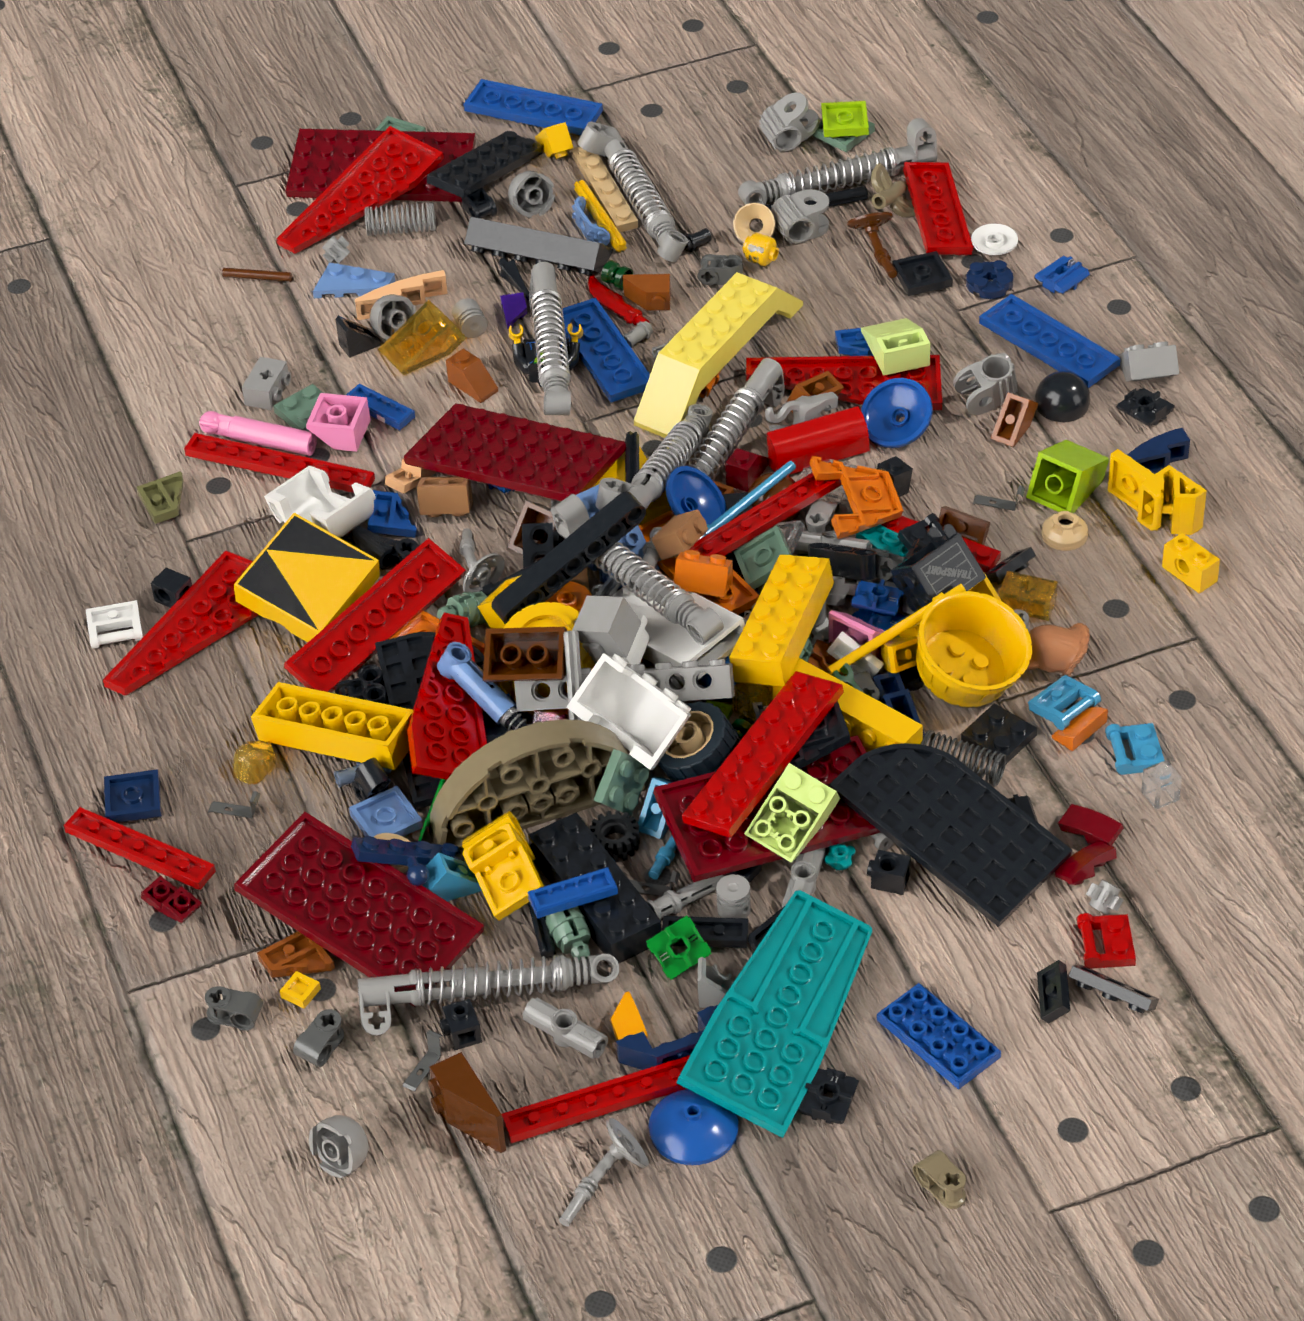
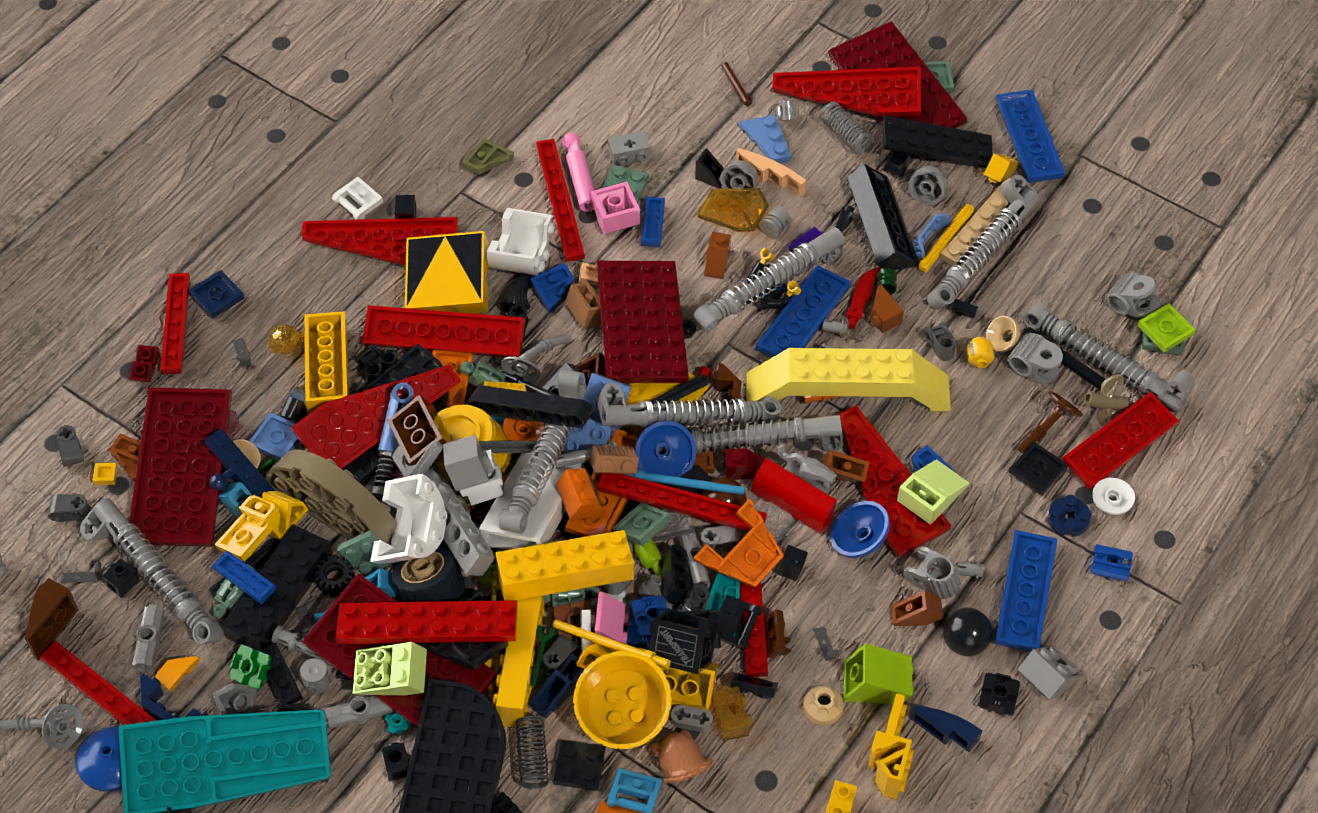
camera: 55 degrees right, 10 degrees up
(648, 430) = (727, 382): none -> reddish brown slope

